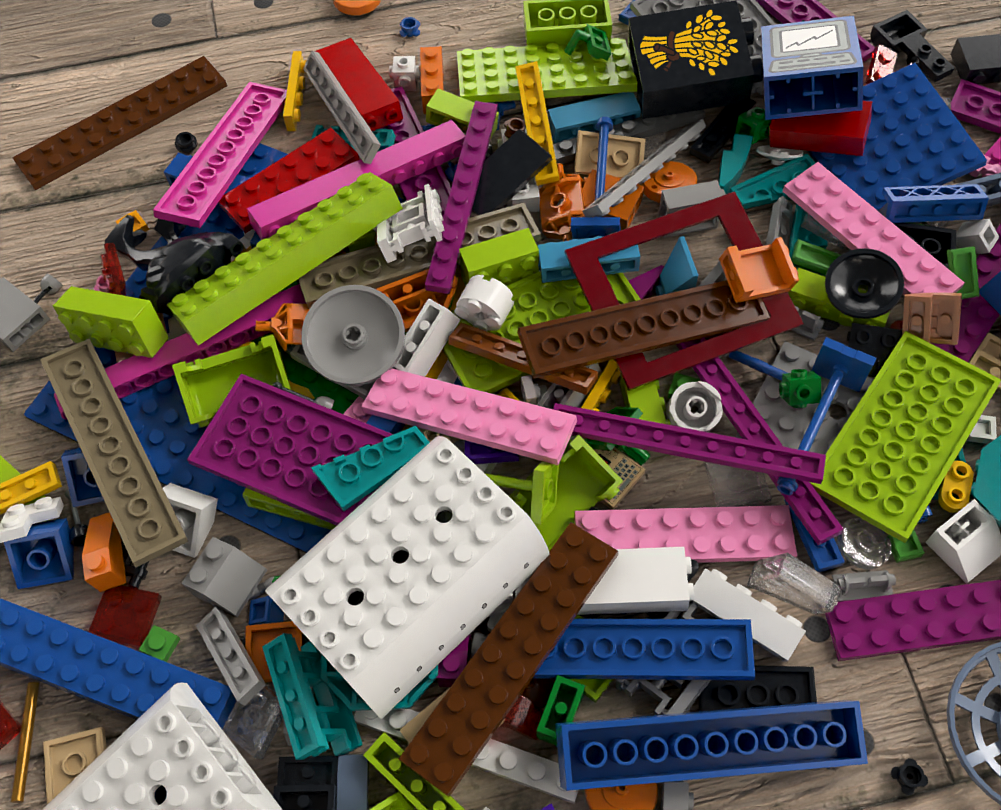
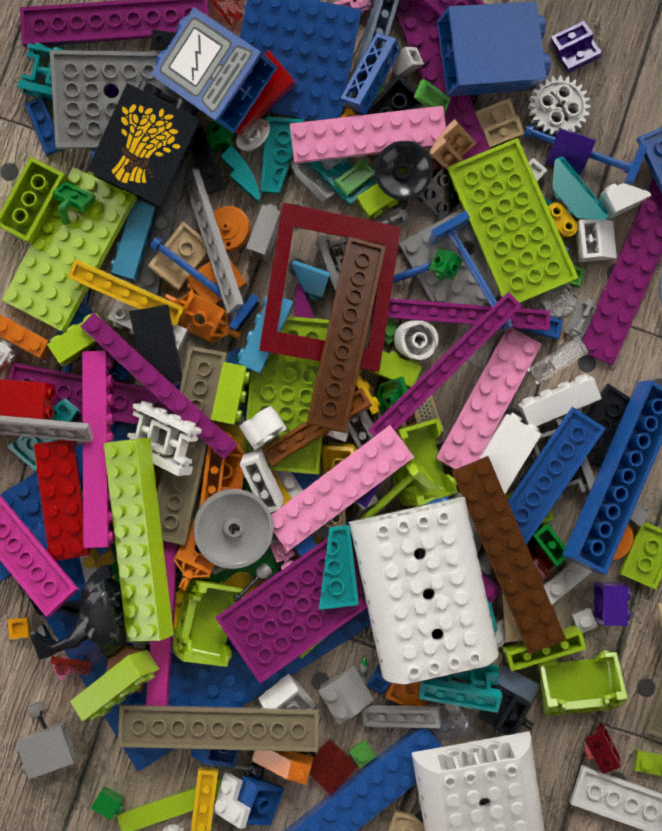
camera: 65 degrees left, 25 degrees up
(513, 125) = (121, 316): reddish brown plate -> none
(759, 270) = (352, 231): orange panel -> none

